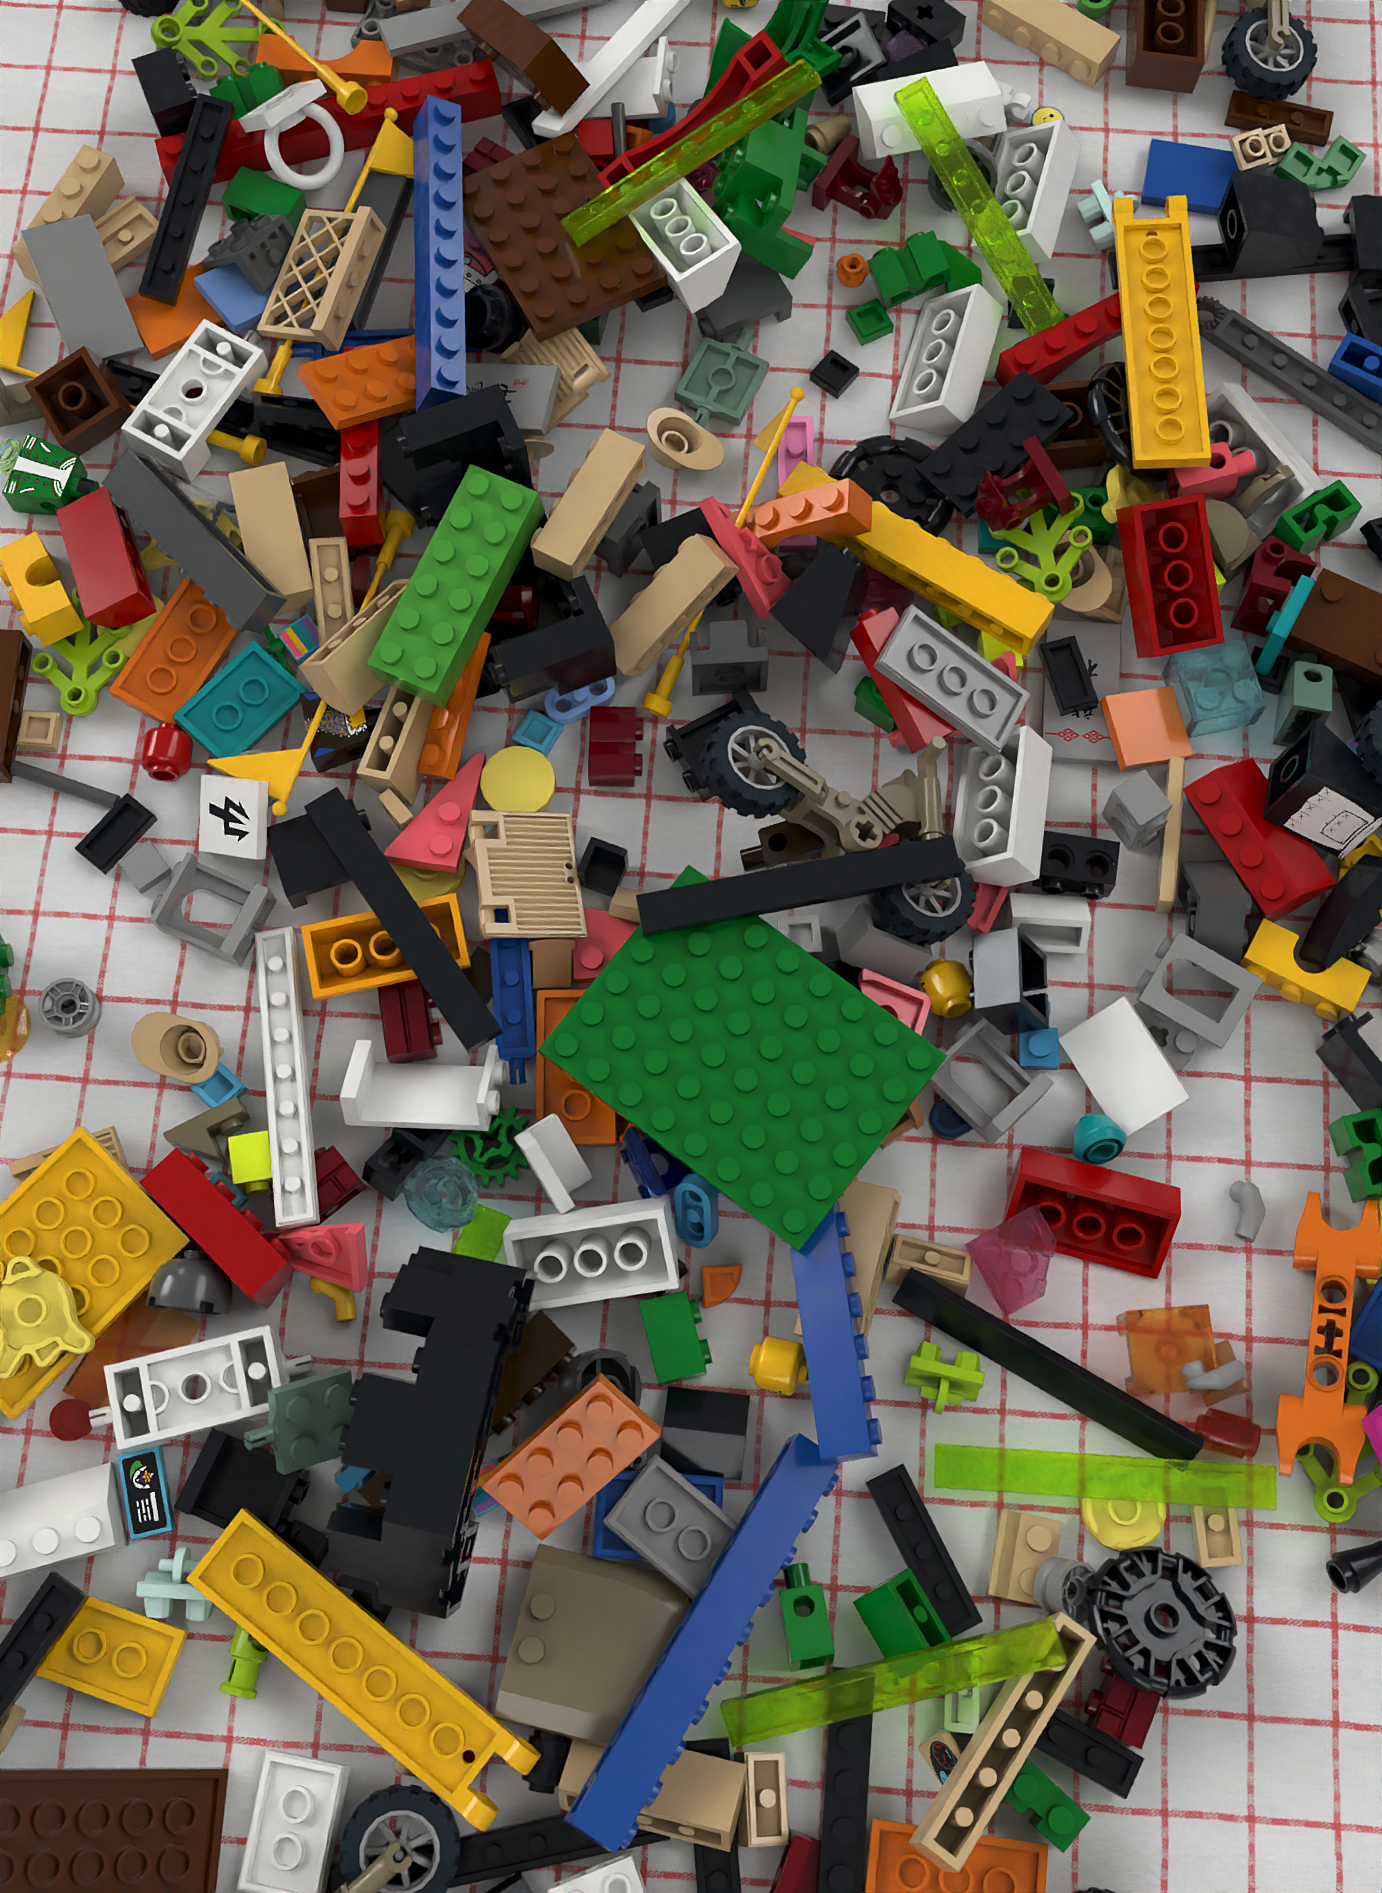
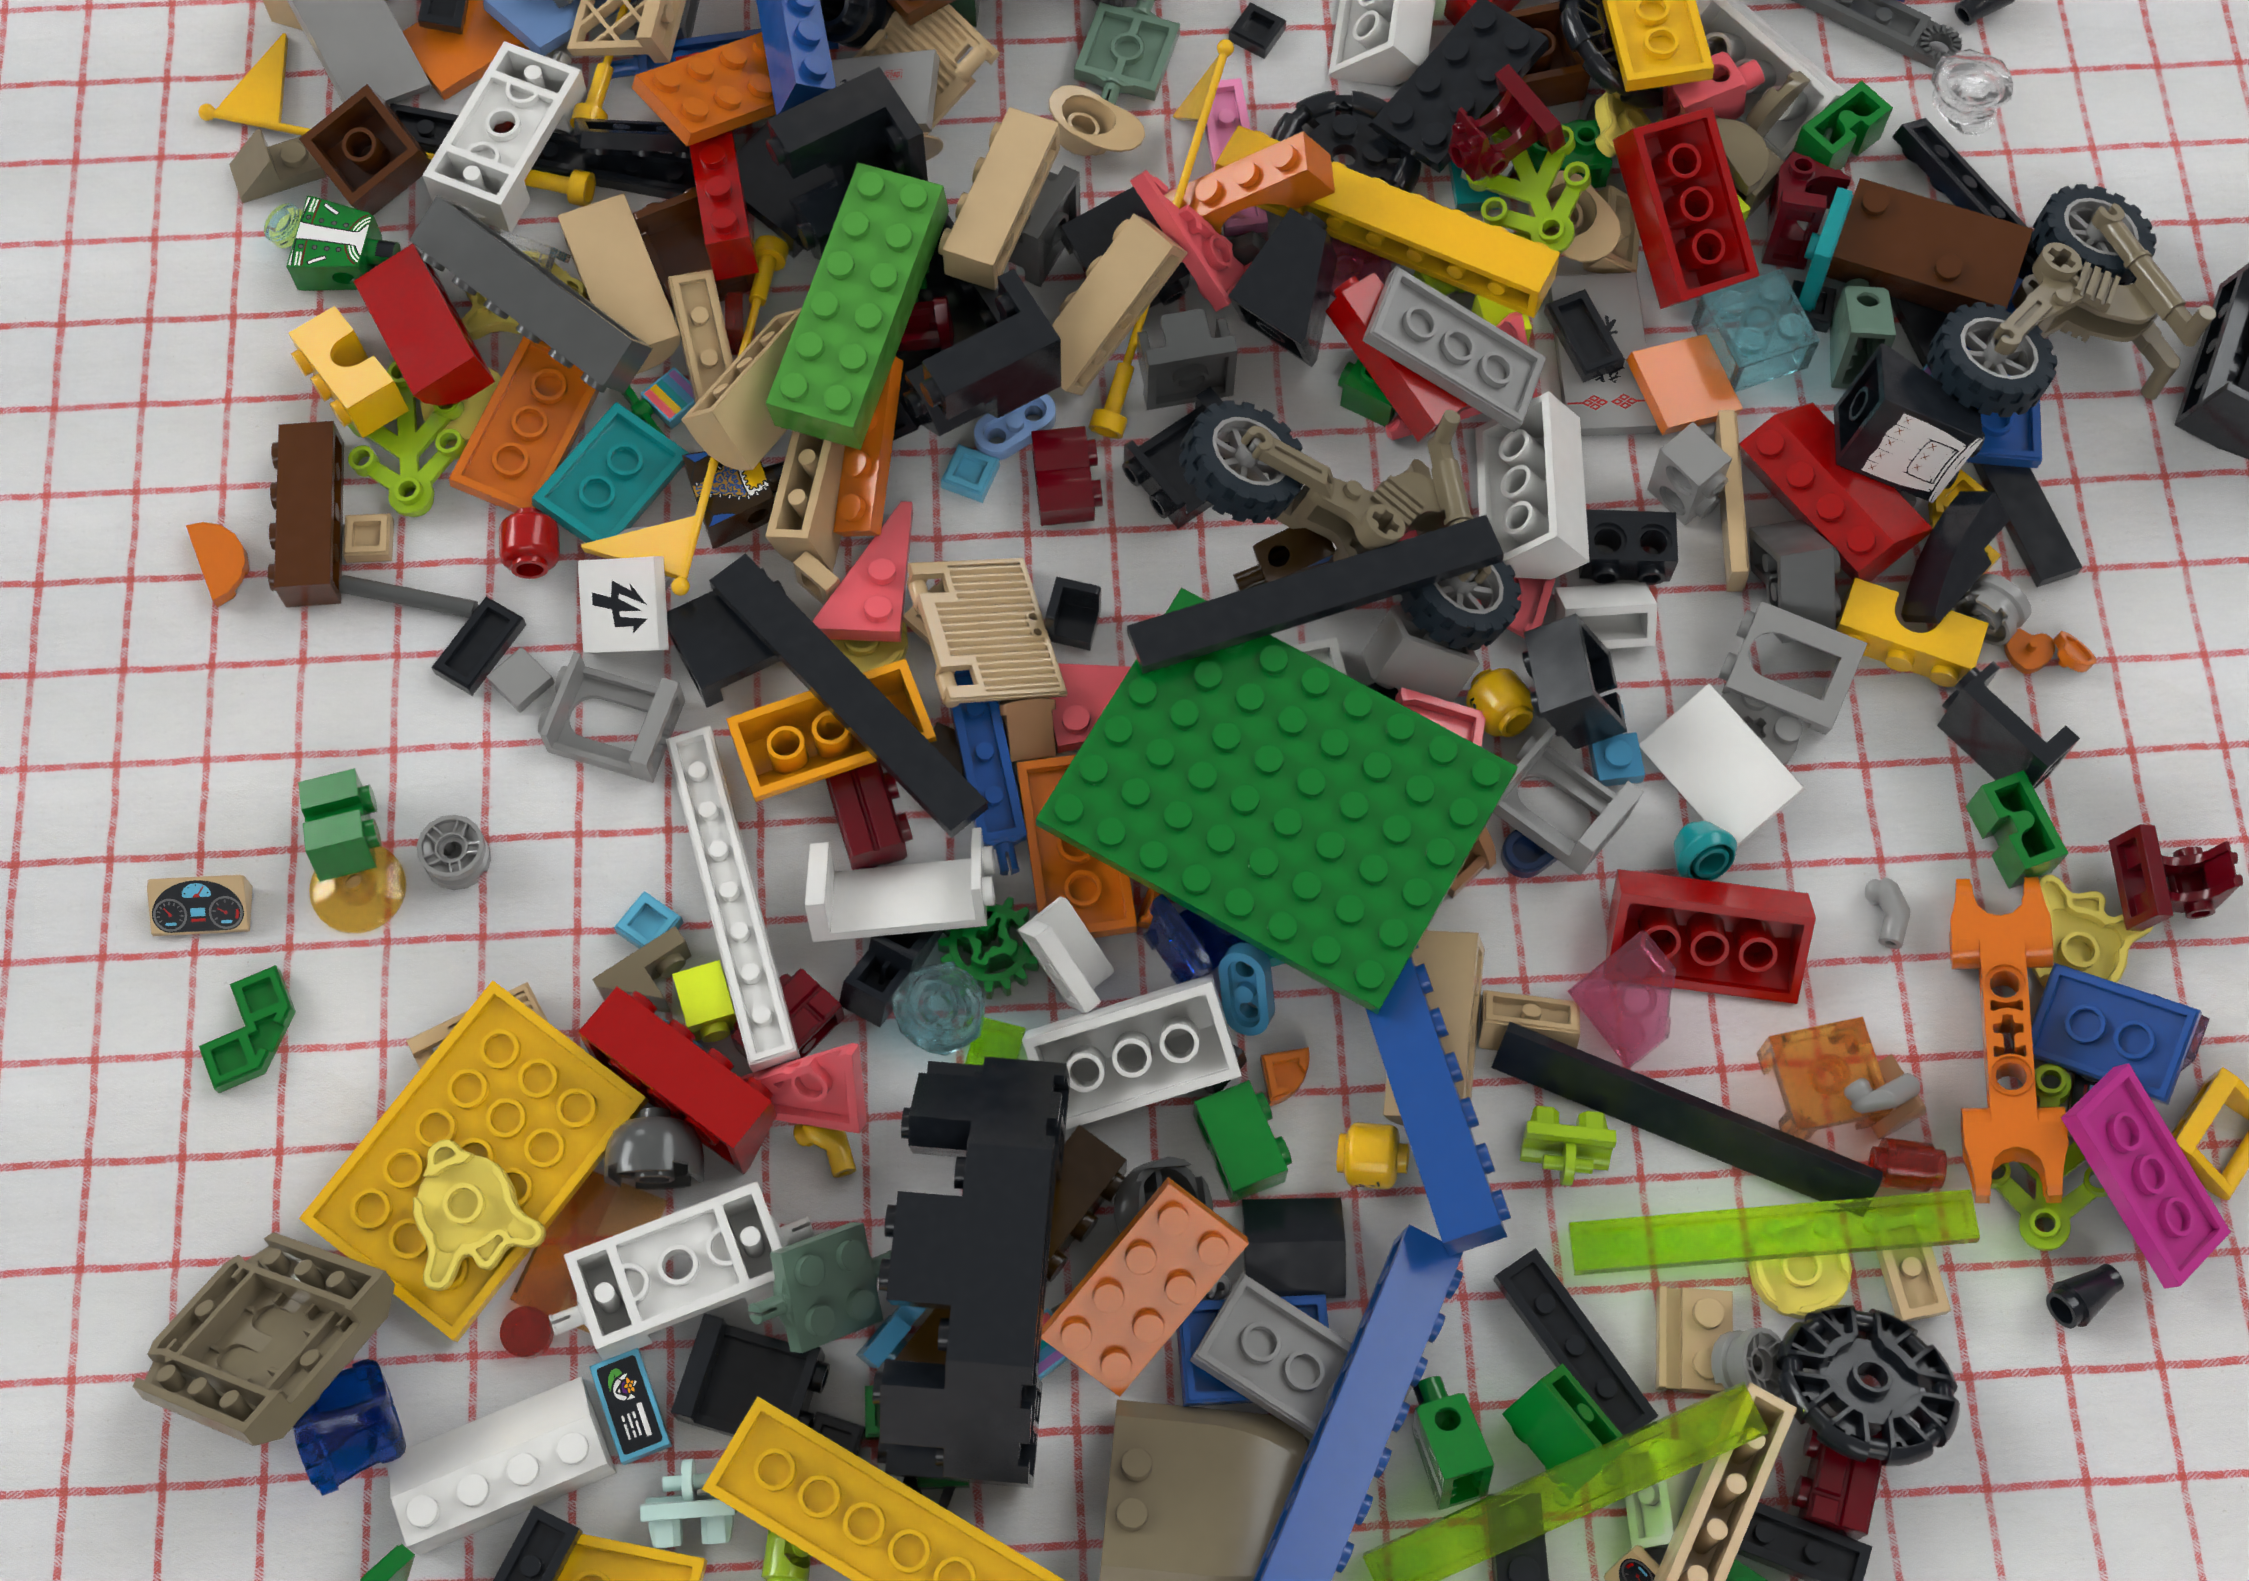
camera: 10 degrees left, 5 degrees down
(177, 1046) = (593, 878): tan piece -> none
(518, 780) = (955, 527): light yellow tile -> none
(625, 904) = (1111, 653): tan tile -> none

